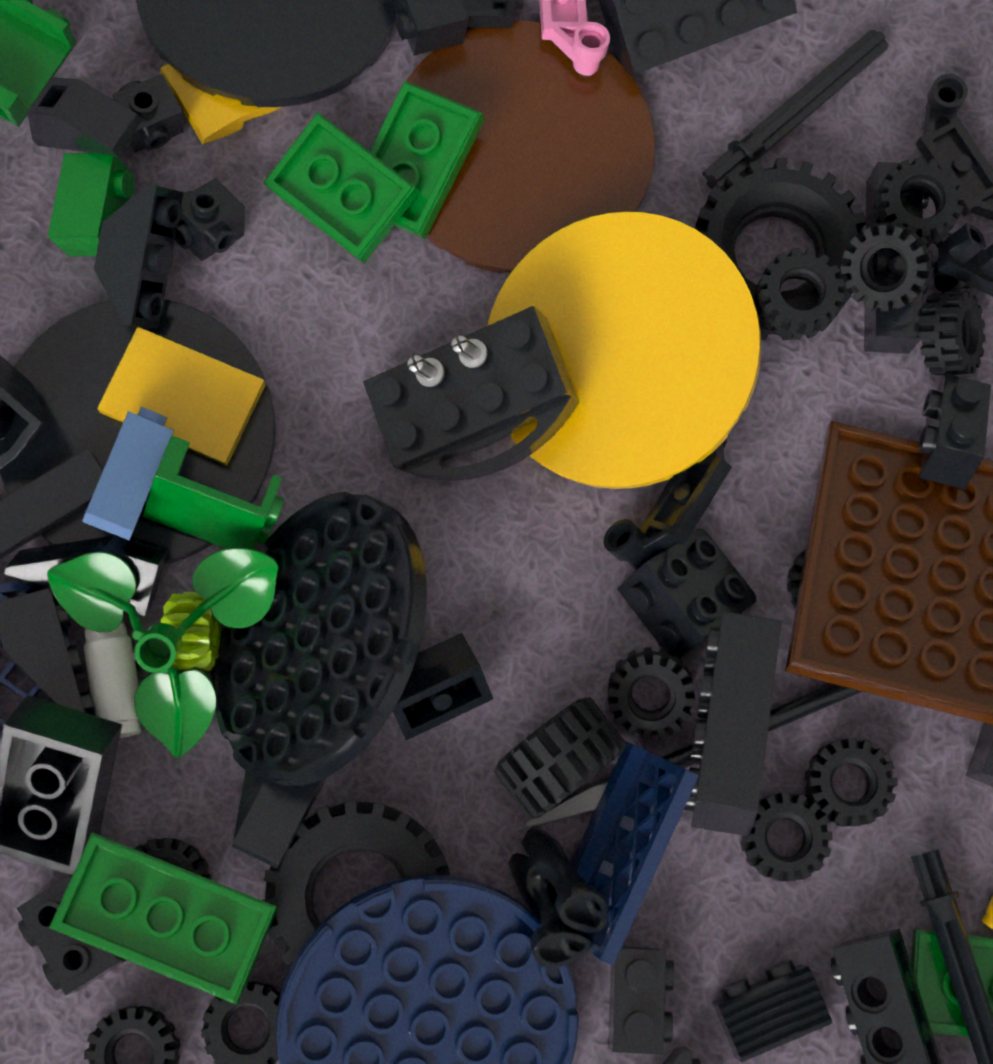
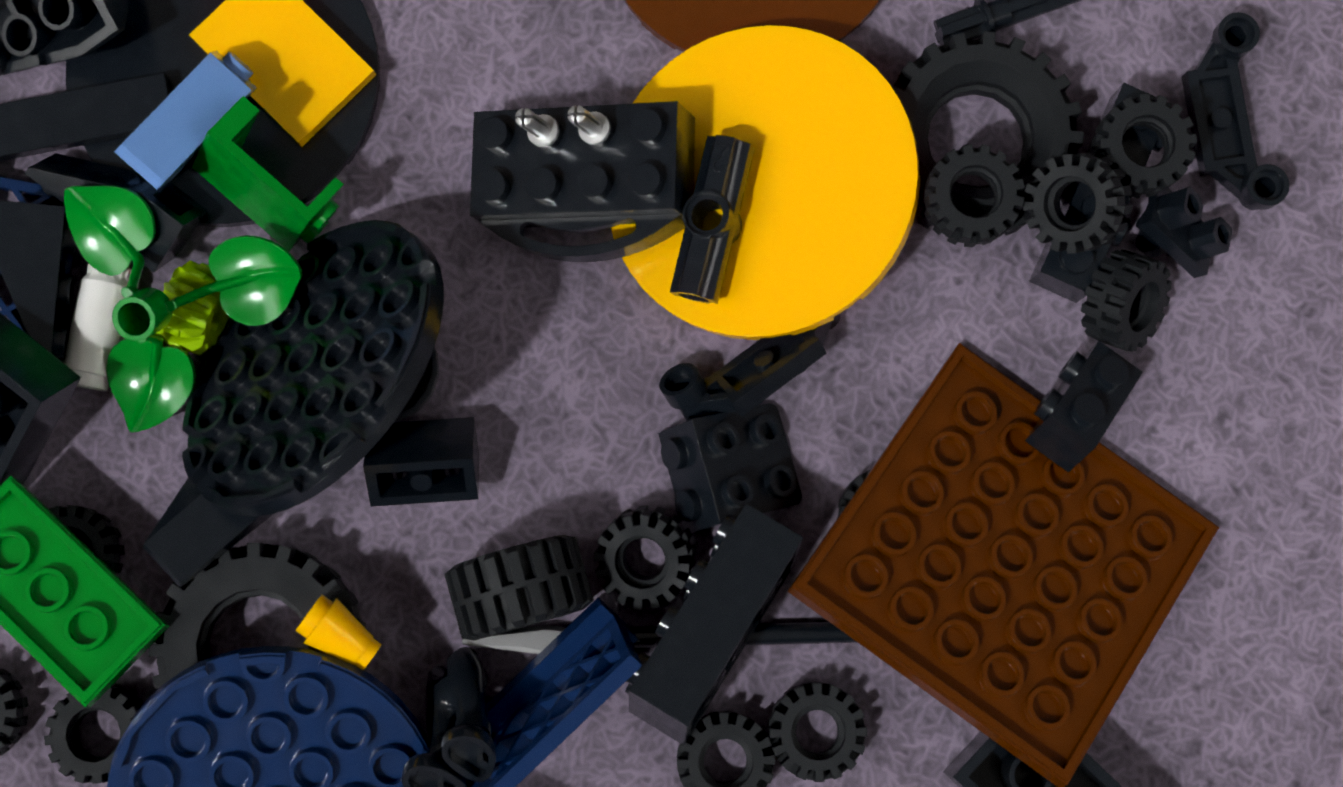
camera: 20 degrees right, 5 degrees up
(424, 853) = (338, 633): none -> yellow cone
(599, 421) = (718, 186): none -> black piece

